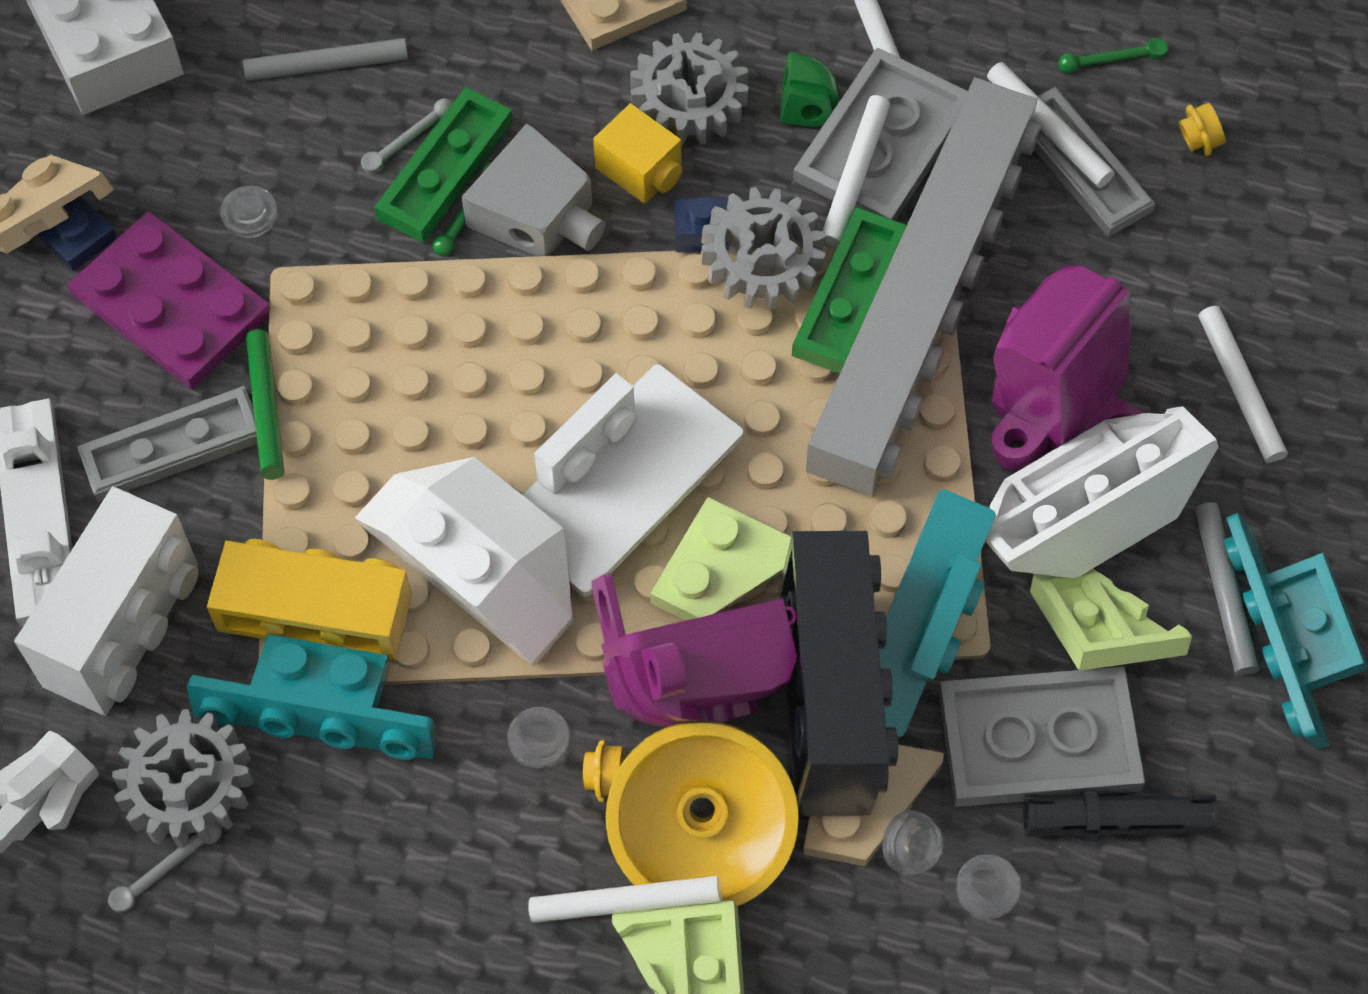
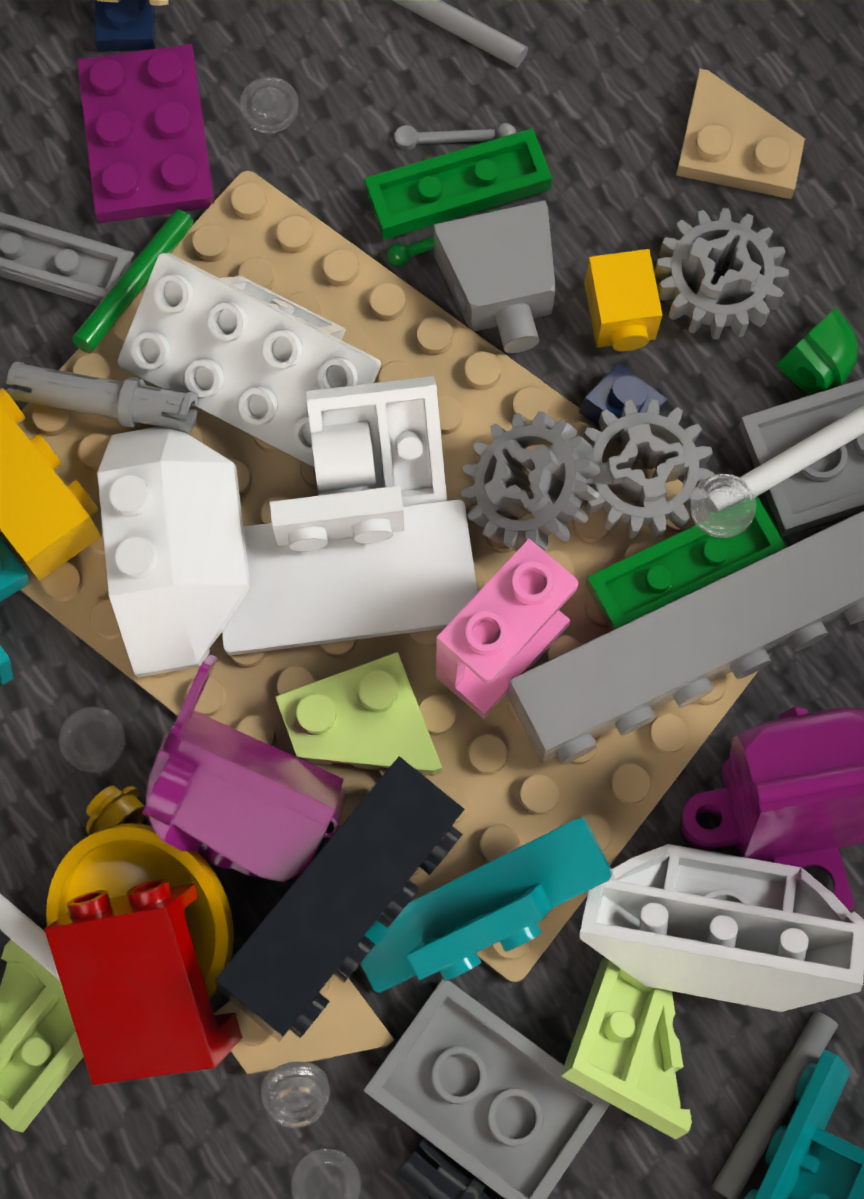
camera: 40 degrees right, 10 degrees up
(327, 492) = (127, 401): none -> light grey pin
(414, 387) = (240, 351): none -> white bracket
(563, 360) = (379, 439): none -> white plate
(692, 334) = (556, 481): none -> light grey gear
(744, 843) = (138, 985): none -> red panel
(777, 410) = (504, 628): none -> bright pink panel
(841, 226) = (723, 505): none -> clear plate

